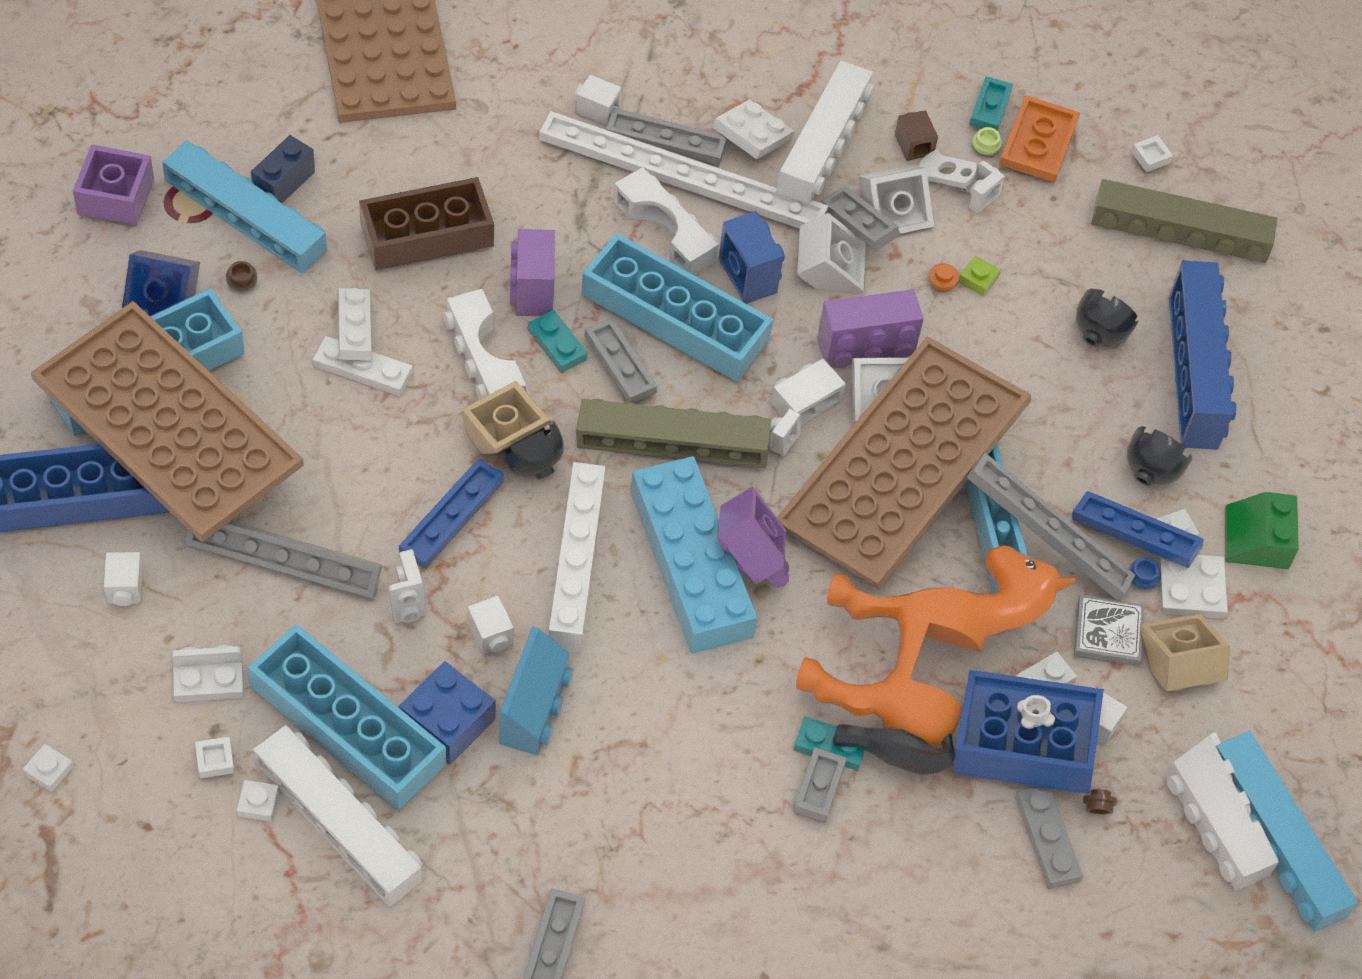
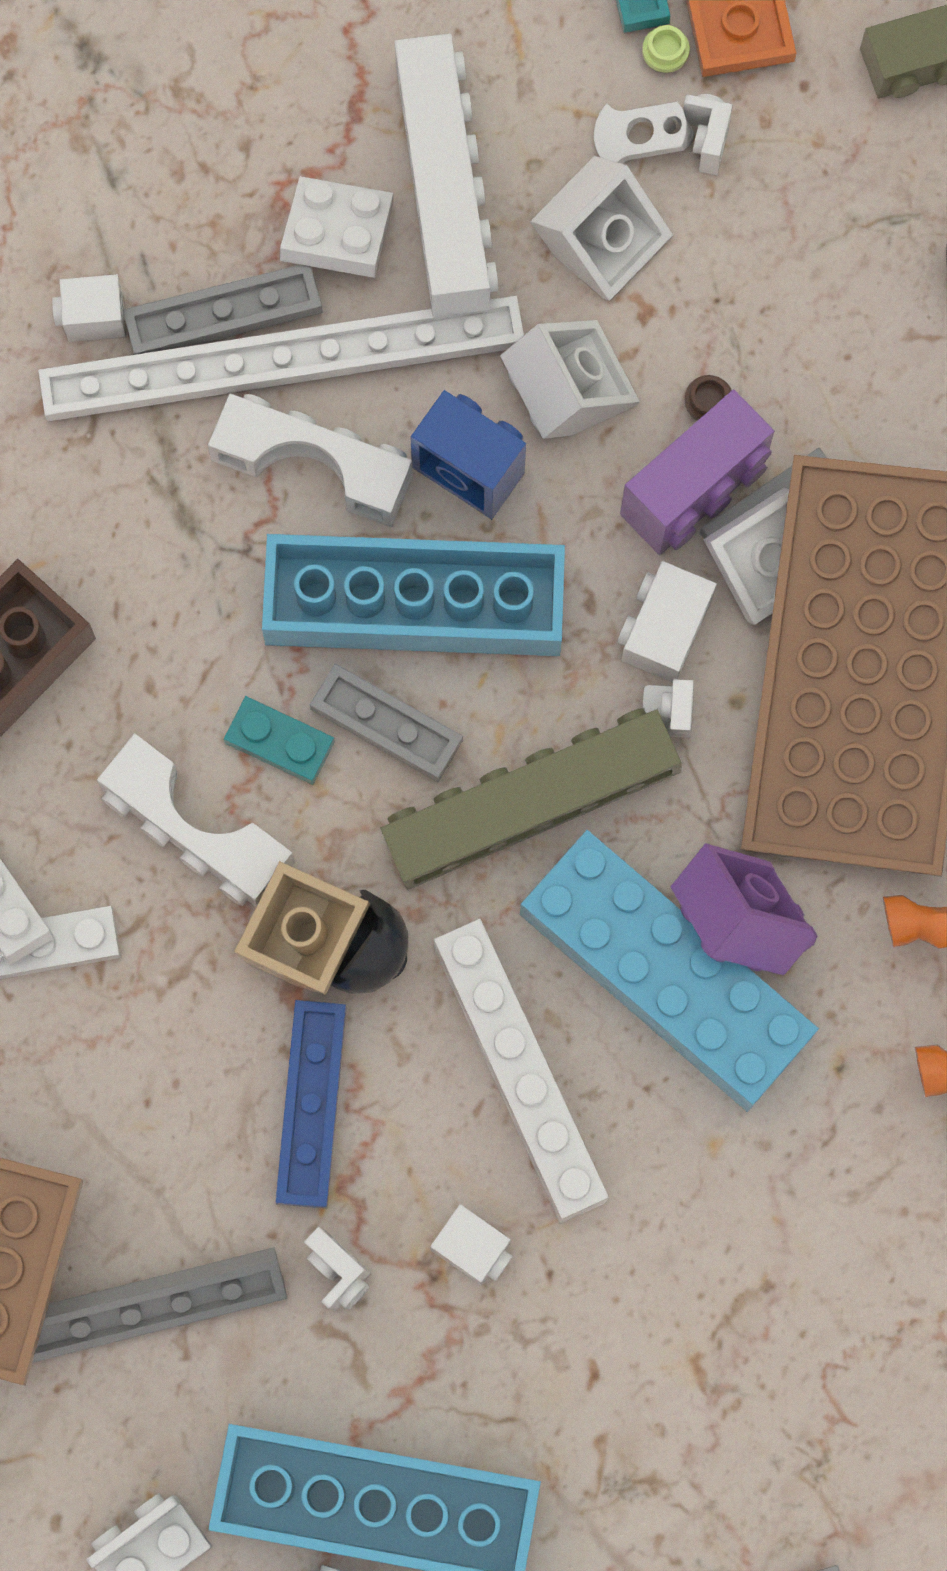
camera: 25 degrees left, 20 degrees up
(450, 709) = (498, 1412): blue brick -> none
(533, 272) = (194, 667): medium lavender brick -> none
(534, 694) = (598, 1316): dark azure slope -> none
(861, 218) = (575, 292): light grey plate -> none
(916, 135) = (565, 99): reddish brown brick -> none
(943, 277) = (735, 314): orange plate -> none
(979, 275) = (780, 281): lime plate -> none

